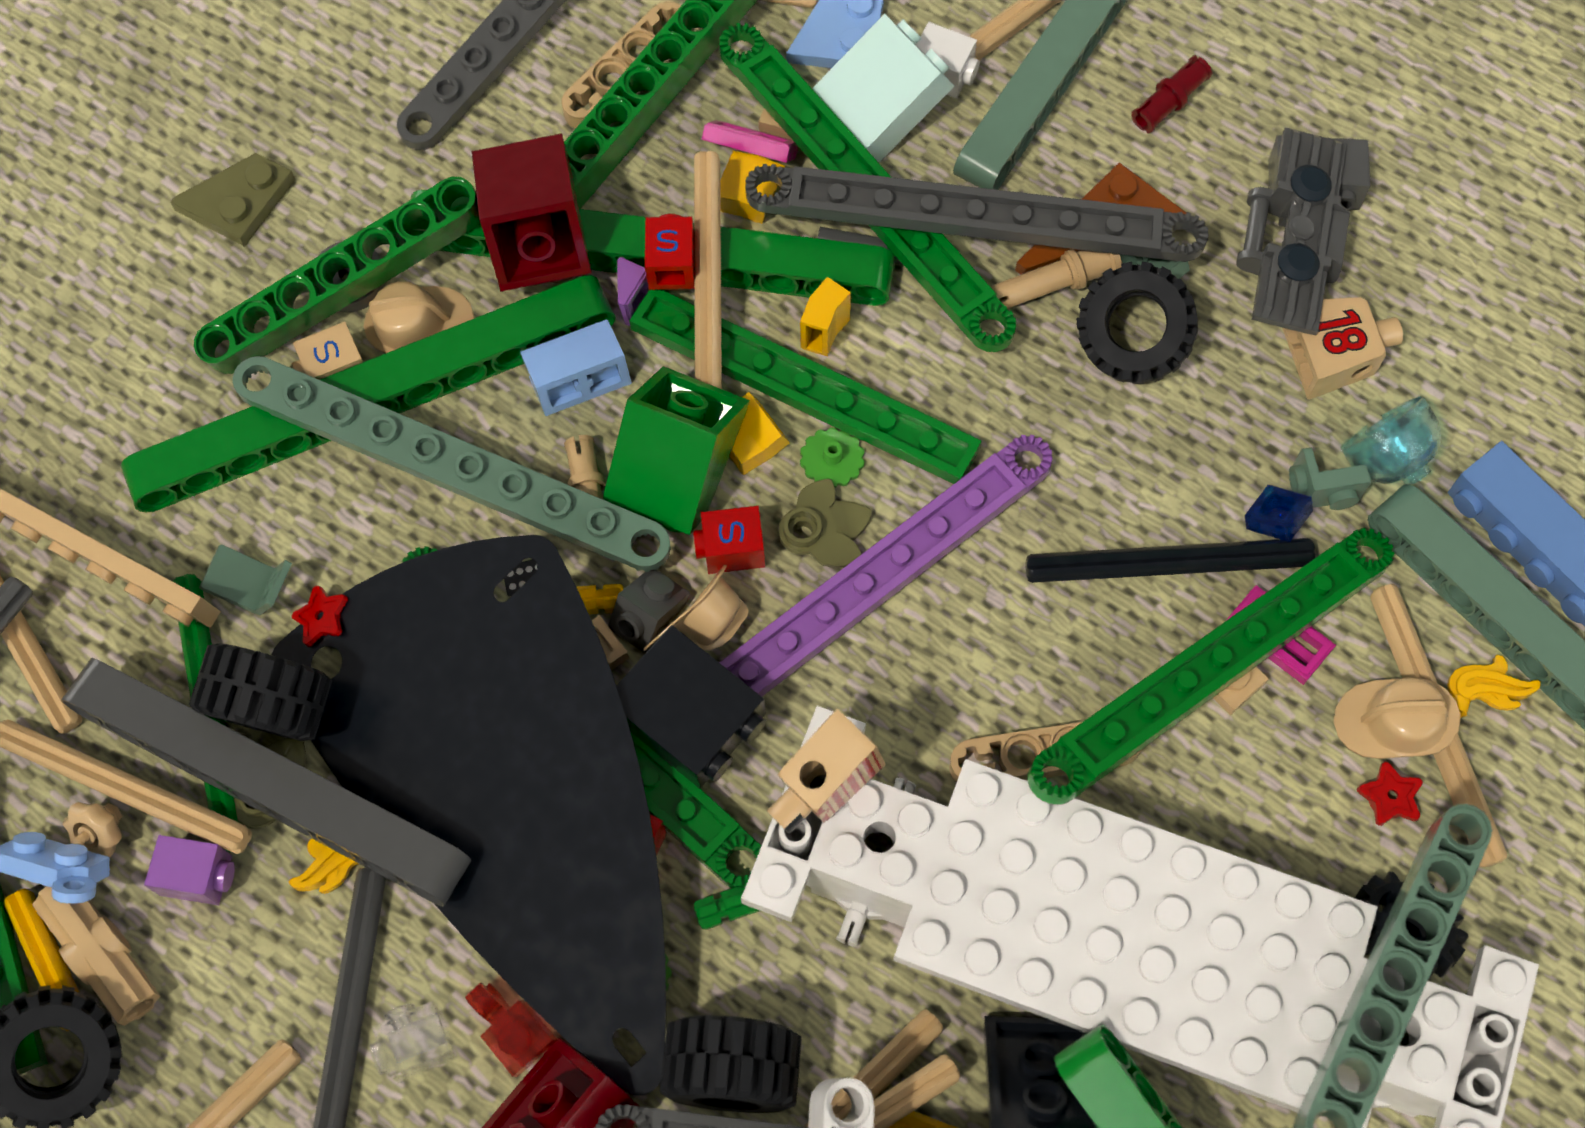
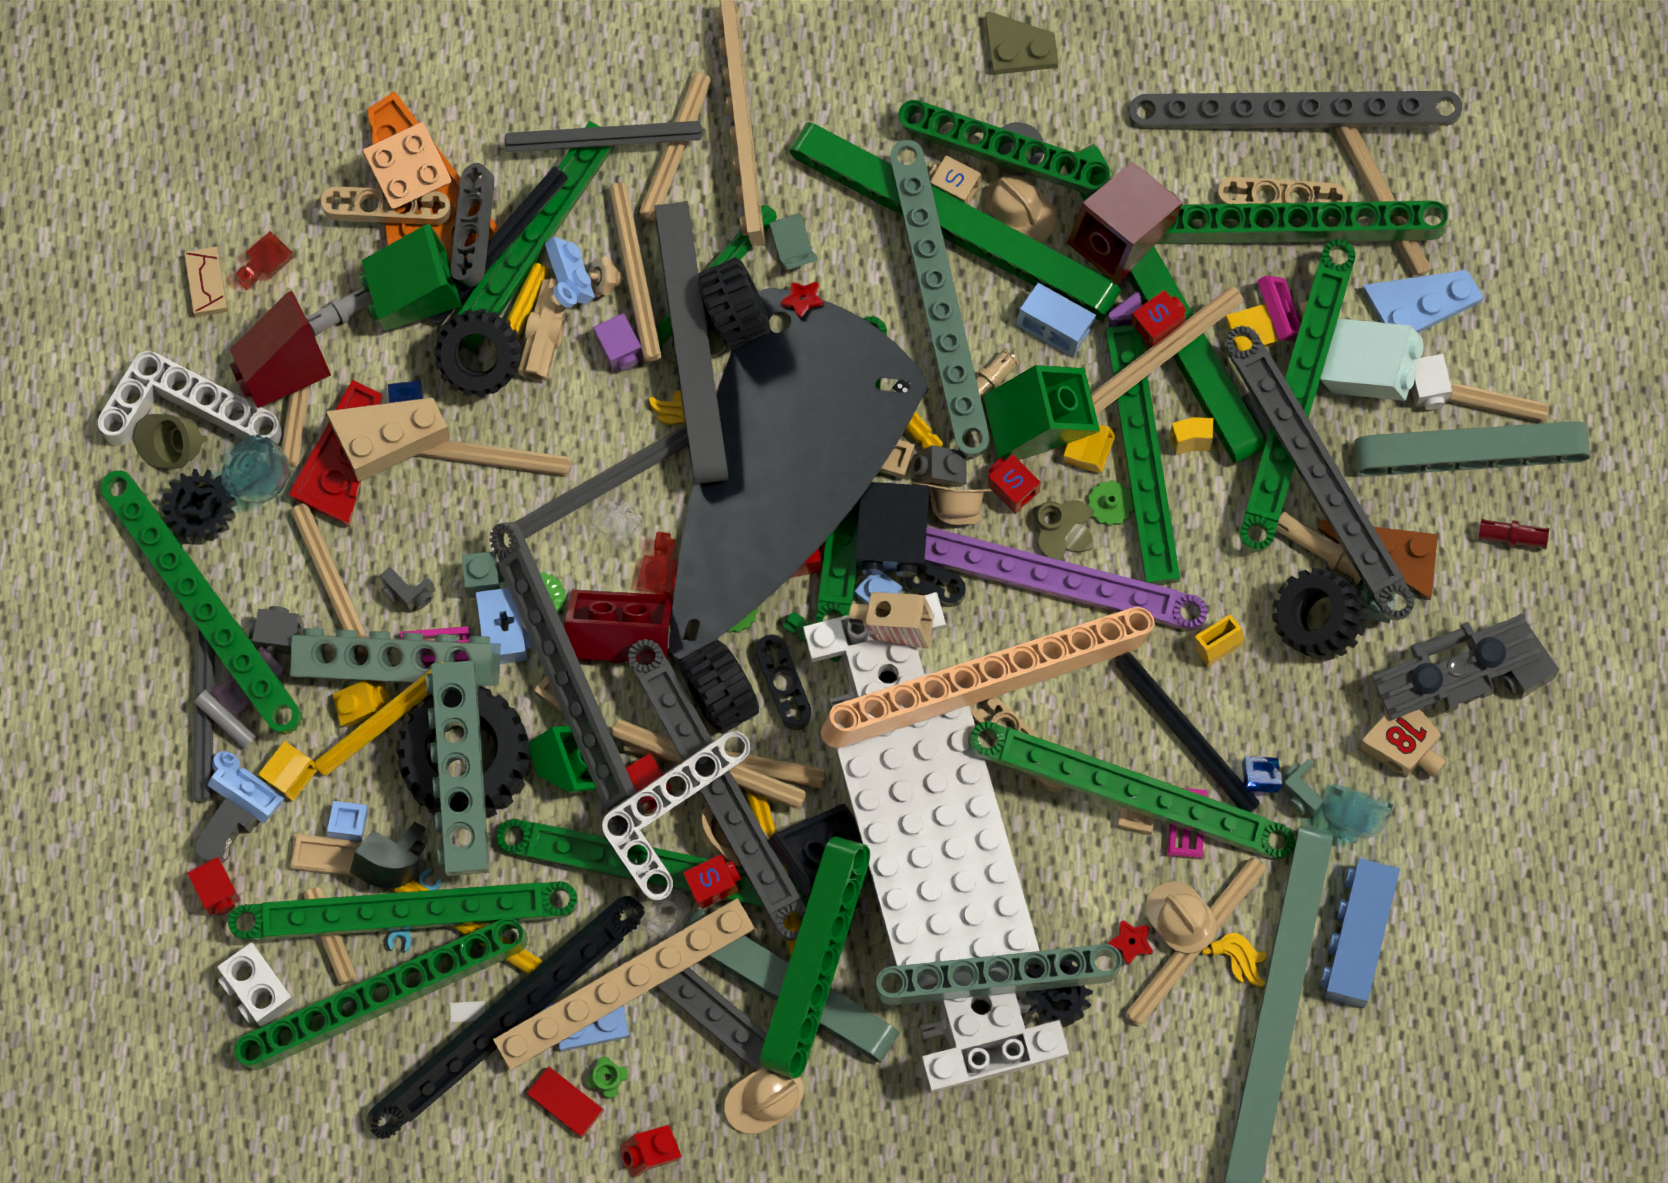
camera: 55 degrees right, 5 degrees up
(745, 785) = (876, 583): none -> light blue plate
(797, 718) = (938, 576): none -> black beam
(814, 978) = (783, 656): none -> black beam
(970, 742) = (977, 686): none -> light nougat beam
(1087, 427) = (1219, 640): none -> yellow piece

